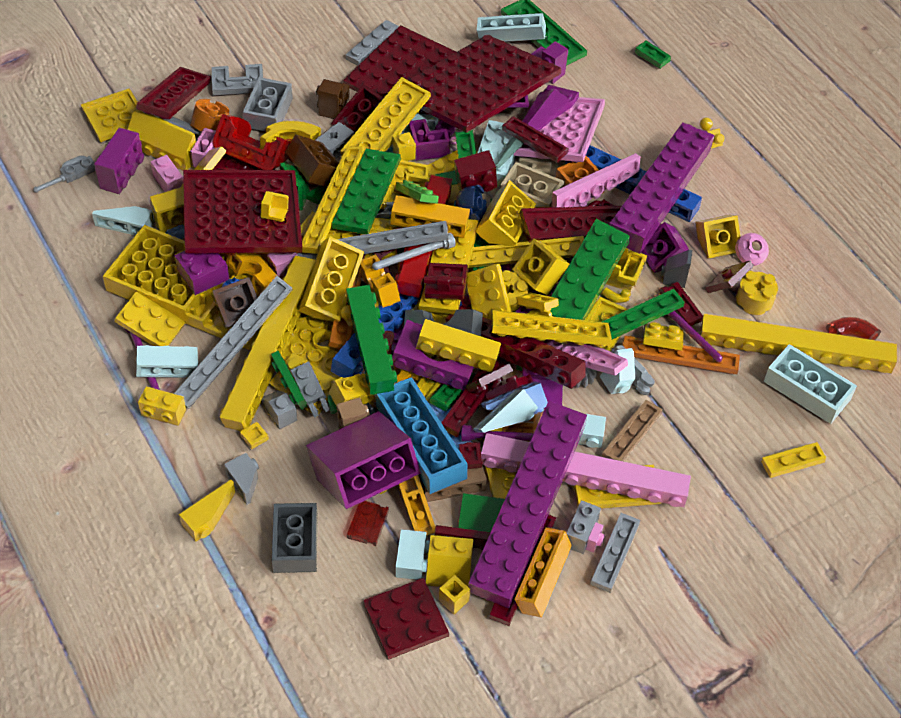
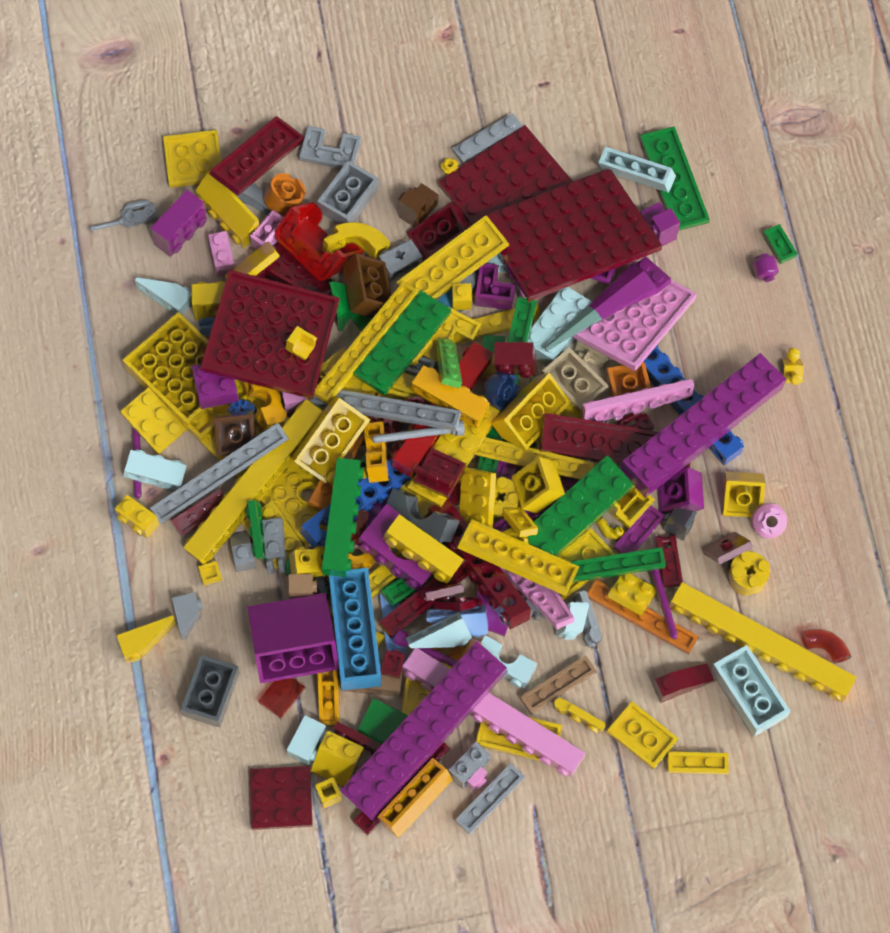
camera: 20 degrees right, 15 degrees up
(219, 390) = (196, 513): none -> dark red plate
(347, 67) = (448, 161): none -> yellow plate
(535, 139) = (595, 330): dark red tile -> none
(644, 287) = (639, 531): none -> magenta plate
(650, 71) = (765, 267): none -> magenta head
(665, 451) = (577, 715): none -> yellow hinge
(731, 452) = (642, 735): none -> yellow plate
(742, 397) = (682, 681): none -> dark red slope

